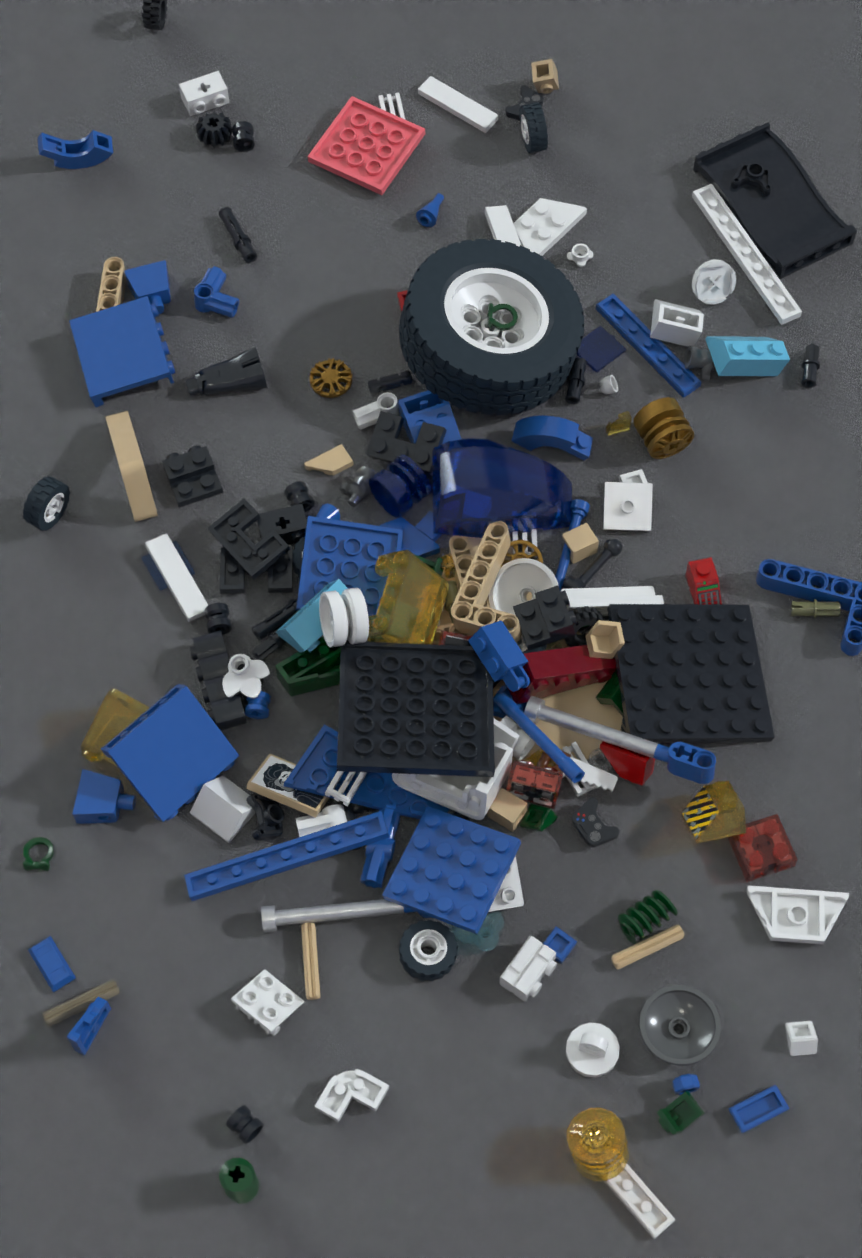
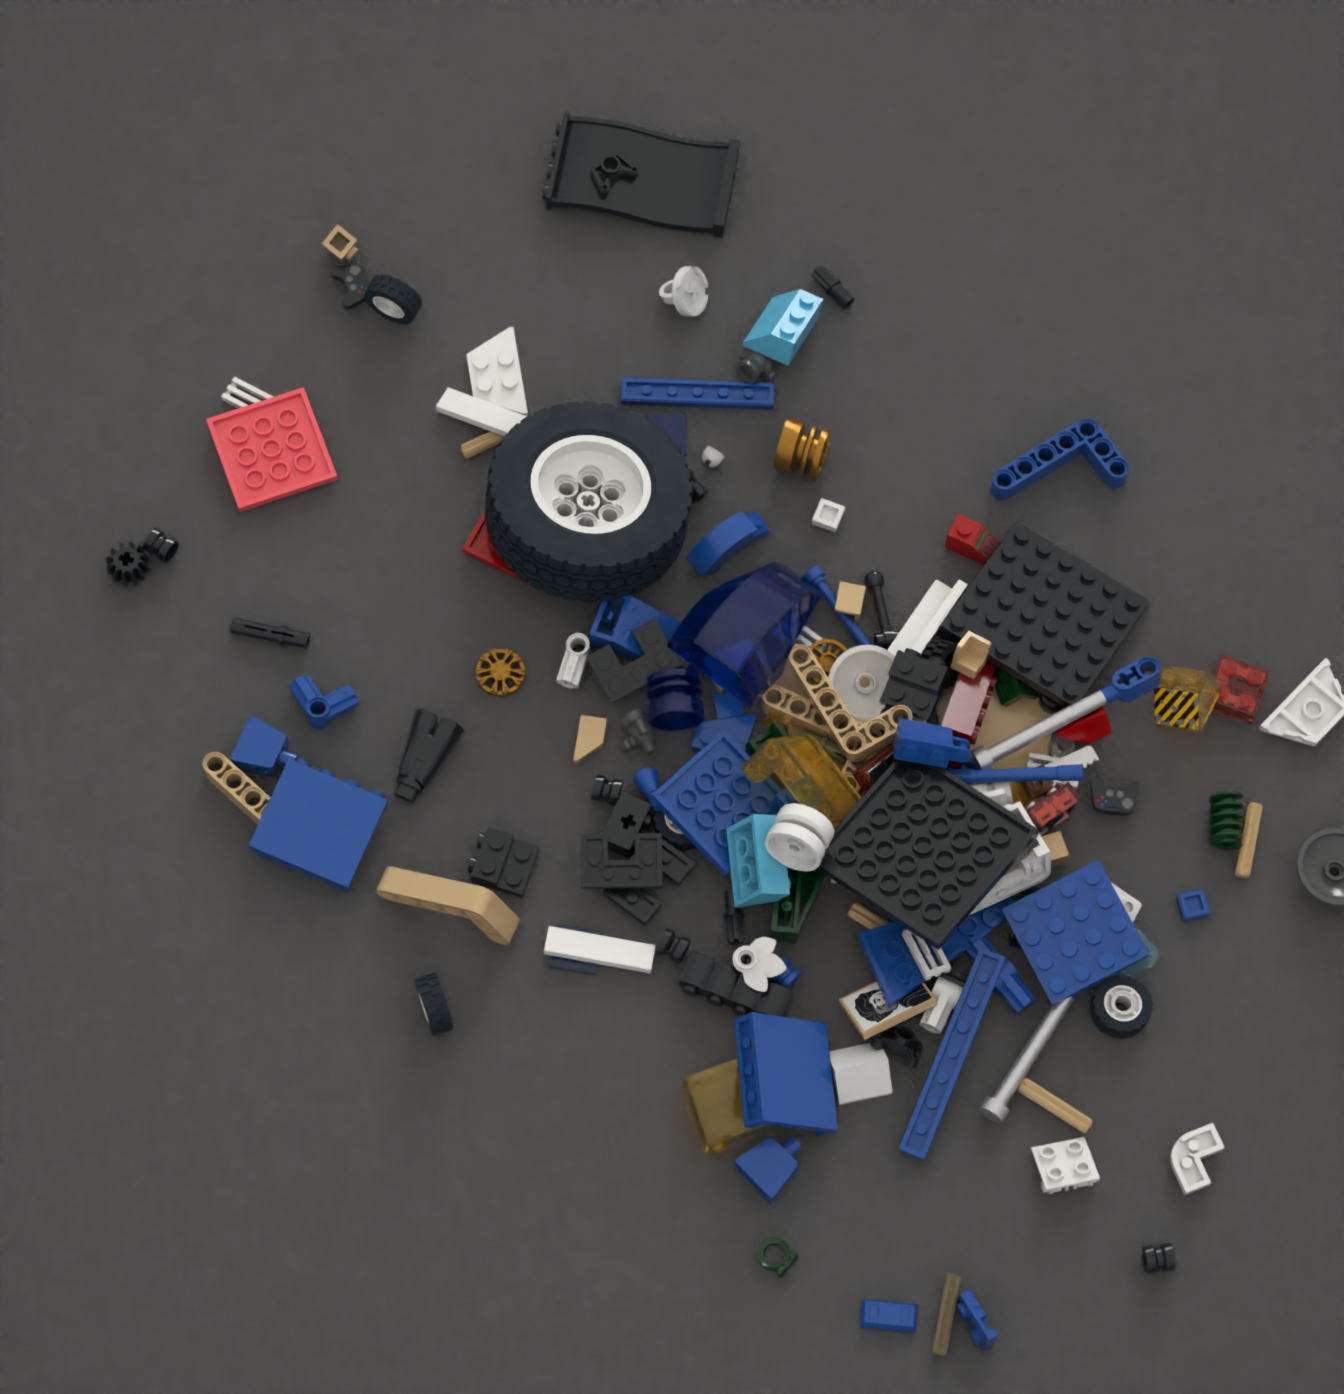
camera: 55 degrees left, 5 degrees up
(76, 153) = (42, 701): blue arch -> none
(204, 93) = (68, 549): white brick -> none
(239, 1171) = (1212, 1284): dark green piece -> none
(275, 621) = (714, 897): black pin -> none
(390, 381) = (549, 626): black axle -> none
(428, 214) = (399, 458): blue cone -> none
(458, 104) = (294, 338): white tile -> none
(492, 322) = (587, 497): dark green piece -> none
(528, 969) = (1198, 942): white brick -> none
(538, 818) = (1073, 833): dark green slope -> none
(580, 249) = (551, 366): white plate -> none
(592, 1050) = (1300, 948): white tile -> none
(619, 425) = (760, 478): clear yellow tile -> none
(627, 506) = (847, 538): white plate -> none
(676, 323) = (702, 352): white slope -> none
(746, 254) = (677, 241): white plate -> none
(815, 609) = (1063, 476): olive axle -> none

